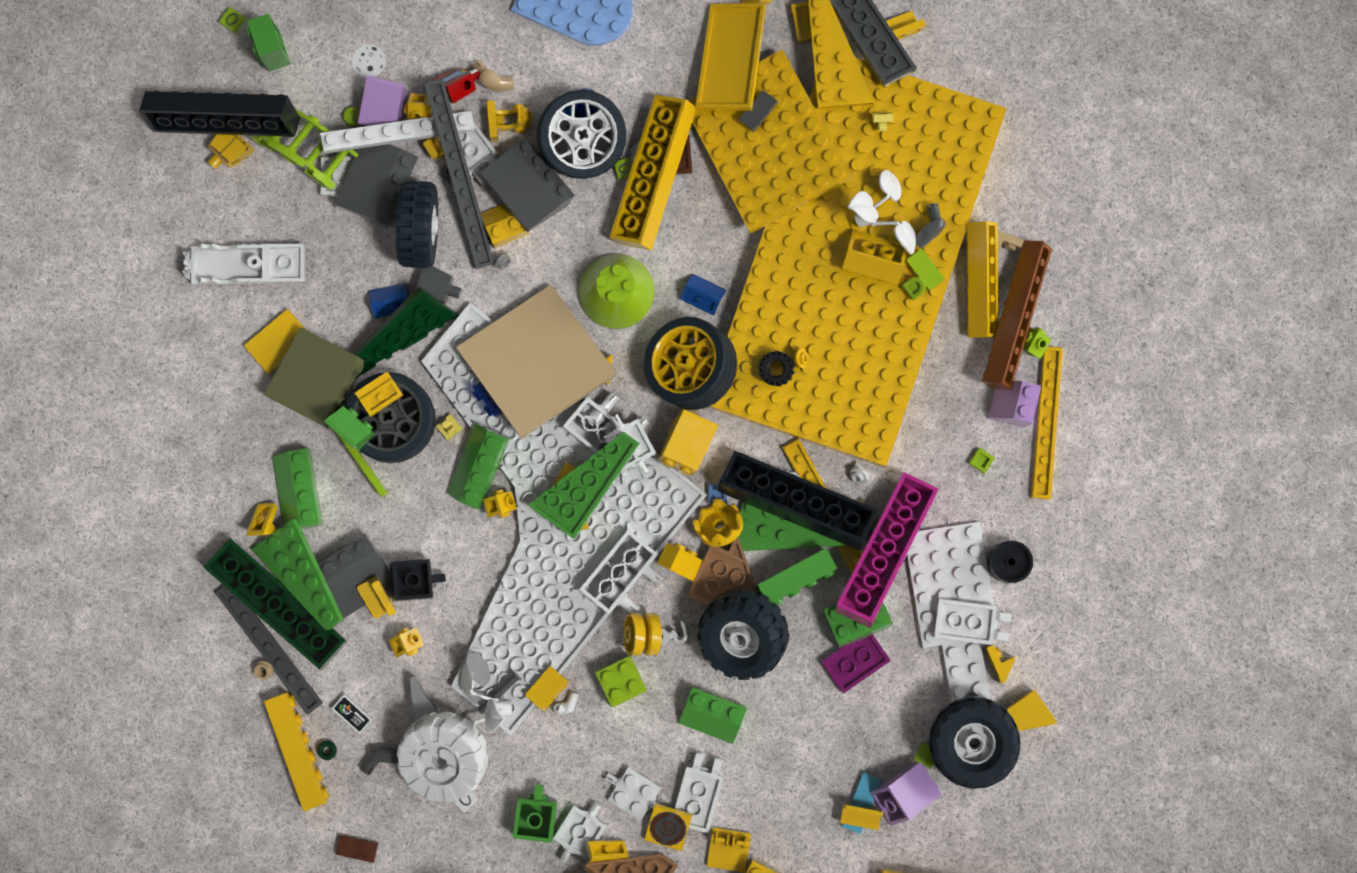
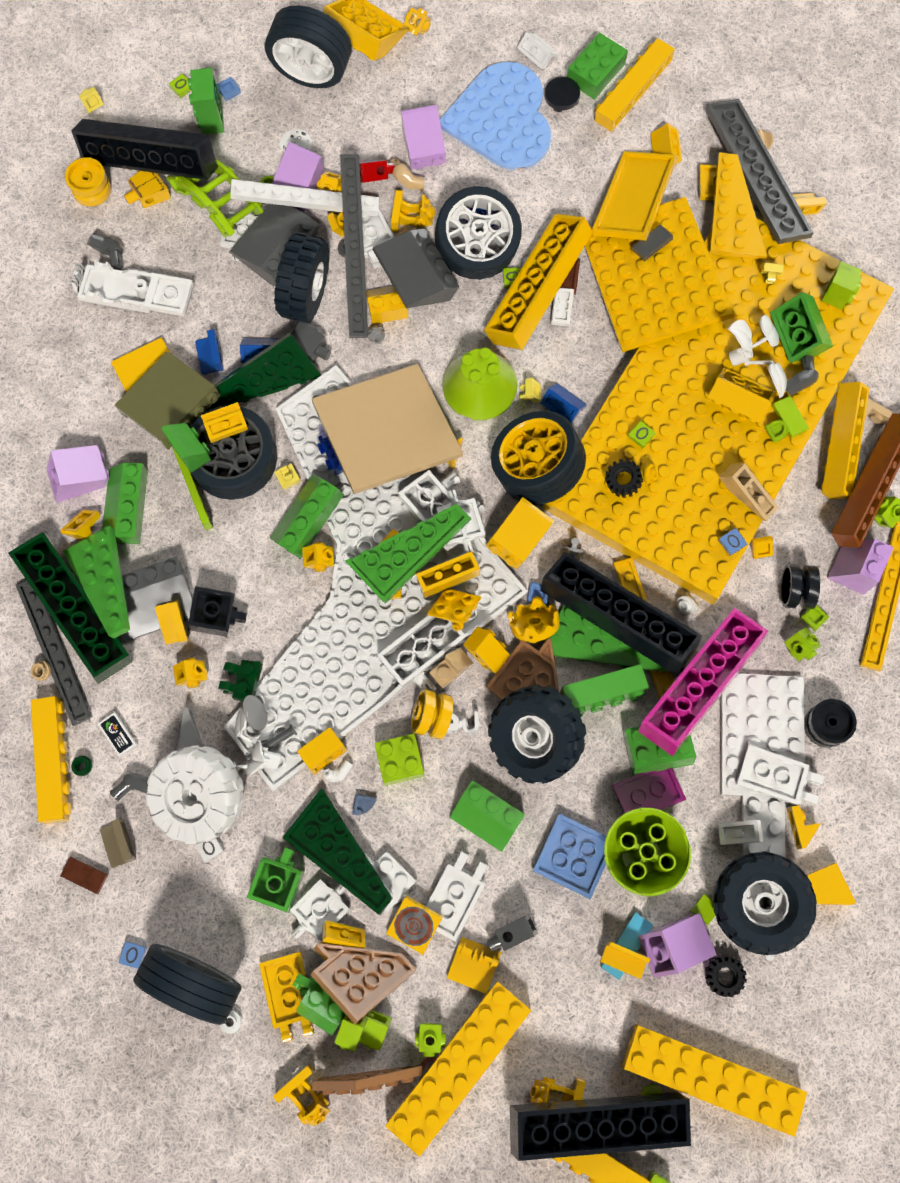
camera: 15 degrees right, 10 degrees down
(141, 57) = (90, 99): none -> light yellow tile
(159, 147) = (88, 181): none -> yellow wheel
(208, 222) = (107, 247): none -> dark grey arm
(242, 468) = (76, 471): none -> lavender slope
(283, 13) = (228, 89): none -> medium blue tile
(339, 315) = (209, 354): none -> blue panel
(379, 813) = (117, 843): none -> dark tan panel
(461, 638) = (247, 679): none -> dark green plate
(502, 34) = (423, 137): none -> lavender slope
(576, 773) = (330, 845): none -> dark green wing
(596, 728) = (363, 804): none -> sand blue tile
(628, 498) = (448, 574): none -> yellow brick
(641, 528) = (455, 607): none -> yellow hinge
(651, 586) = (449, 669): none -> tan slope
(670, 288) = (532, 390): none -> light yellow tile
(682, 192) = (562, 307): none -> white plate
(741, 442) = (572, 549): none -> light grey plate
(764, 810) = (521, 929): none -> dark grey torso
(785, 318) = (641, 434): none -> lime tile
(799, 734) = (572, 856): none -> medium blue plate
(862, 720) = (647, 852): none -> lime cone
(890, 408) = (732, 542): none -> medium blue tile
(897, 355) = (748, 490): none -> tan slope
(921, 175) = (801, 328): none -> bright green slope
(921, 402) = (762, 547): none -> yellow tile
(944, 681) = (740, 832): none -> white plate
(954, 120) = (843, 286): none -> lime brick
(962, 437) = (800, 586): none -> black wheel
(964, 816) = (738, 972): none -> black tyre
(974, 492) = (803, 645): none -> lime brick

